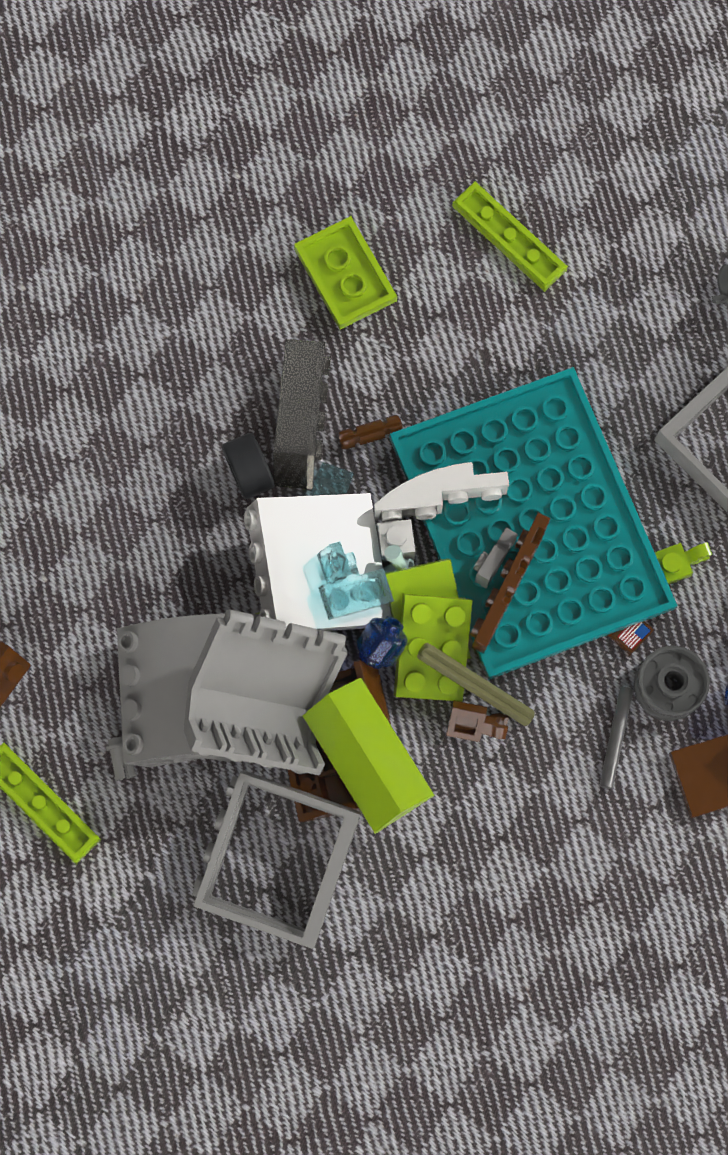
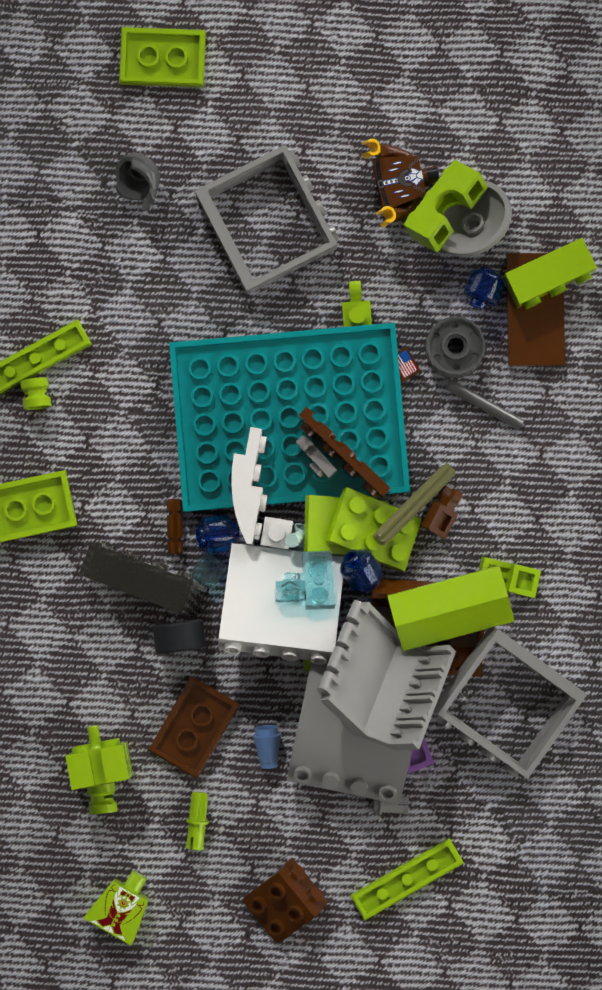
camera: 70 degrees left, 10 degrees up
(36, 439) = (102, 798): none -> lime wheel
(44, 547) = (197, 821): none -> lime axle
(83, 416) = (98, 761): none -> lime brick
(151, 516) = (194, 727): none -> reddish brown tile
(152, 600) = (267, 745): none -> medium blue cone
(187, 775) = (420, 758): none -> medium lavender tile
(375, 476) = (216, 534): none -> clear blue head
(426, 828) = (517, 578): none -> lime slope
(472, 243) = (35, 391): none -> lime wheel

